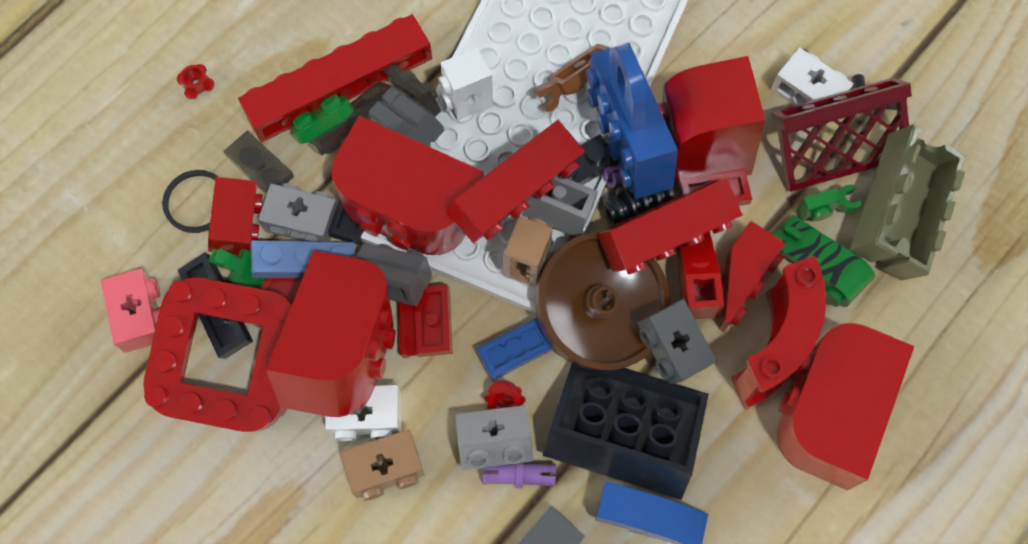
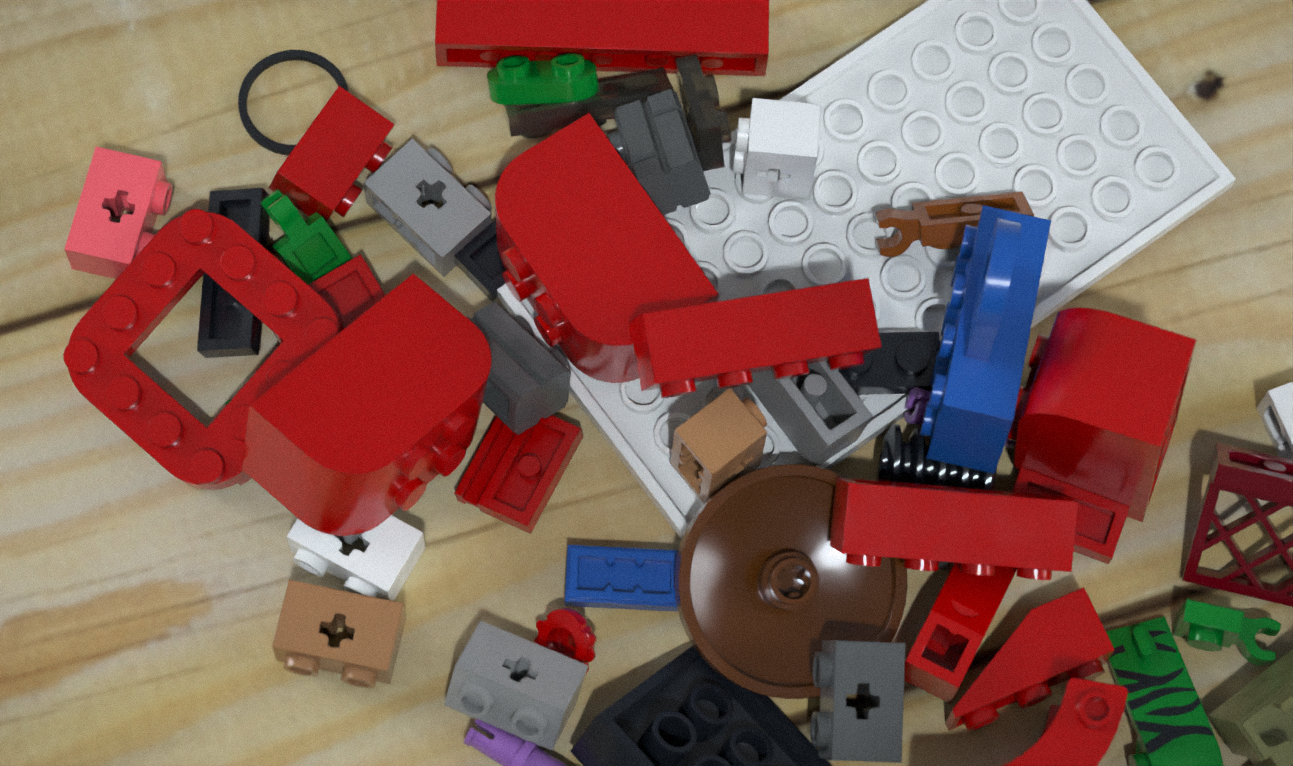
camera: 25 degrees right, 0 degrees up
(257, 162) = (414, 95): clear smoke plate -> none
(290, 258) = (379, 264): medium blue plate -> none

